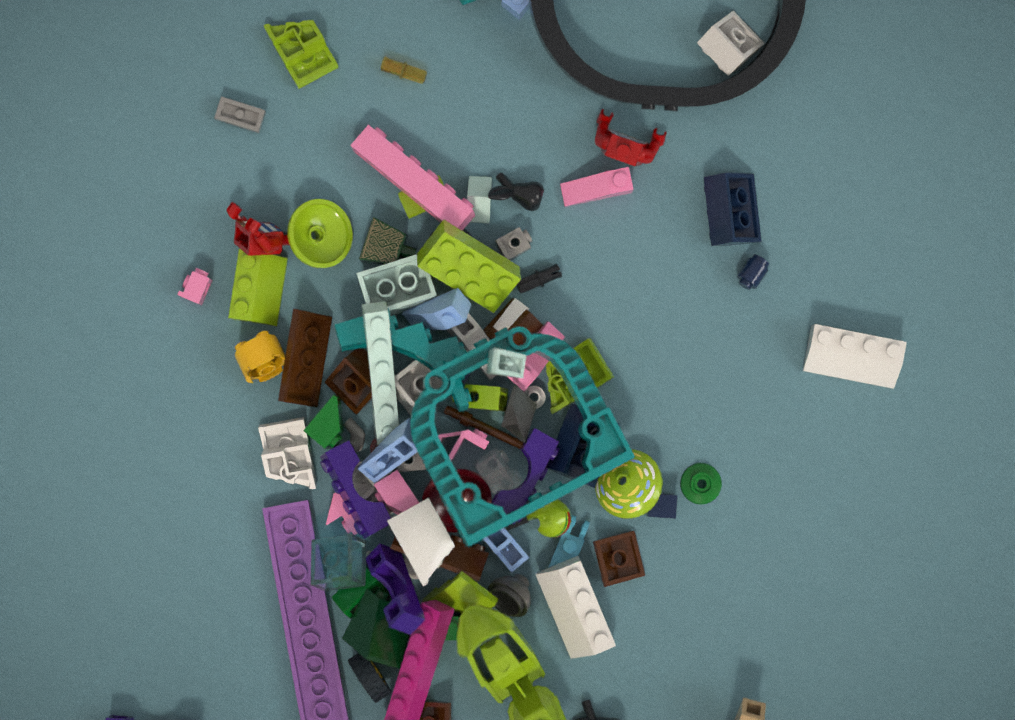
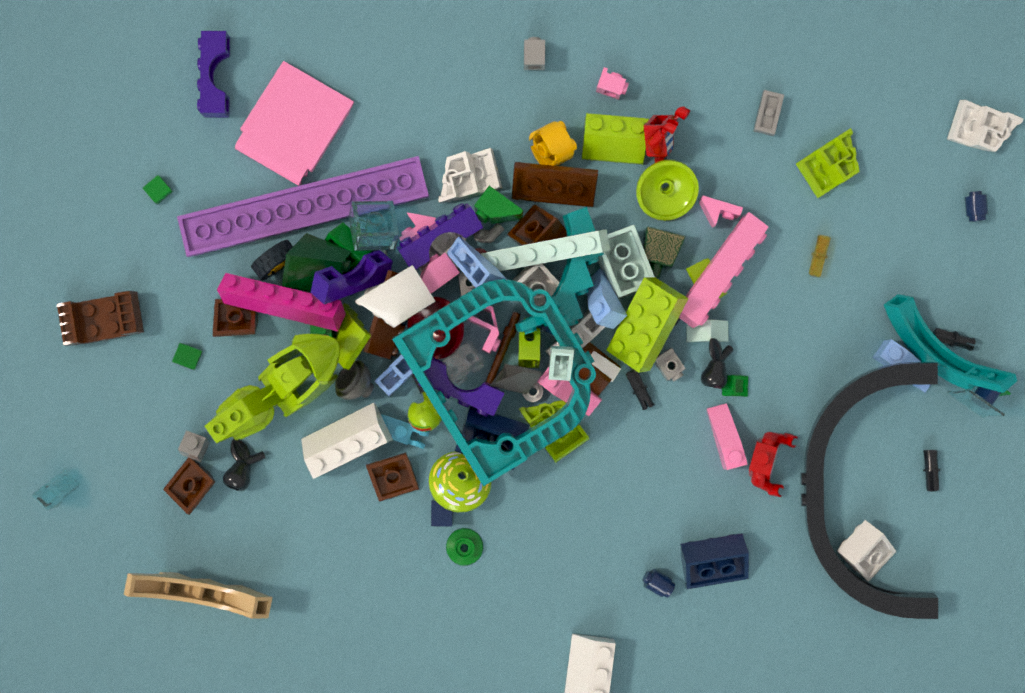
camera: 80 degrees right, 0 degrees up
(156, 371) = (534, 54): none -> light grey brick
(215, 648) = (293, 123): none -> bright pink piece
(342, 183) = (712, 208): none -> bright pink slope
(542, 171) = (736, 386): none -> green slope

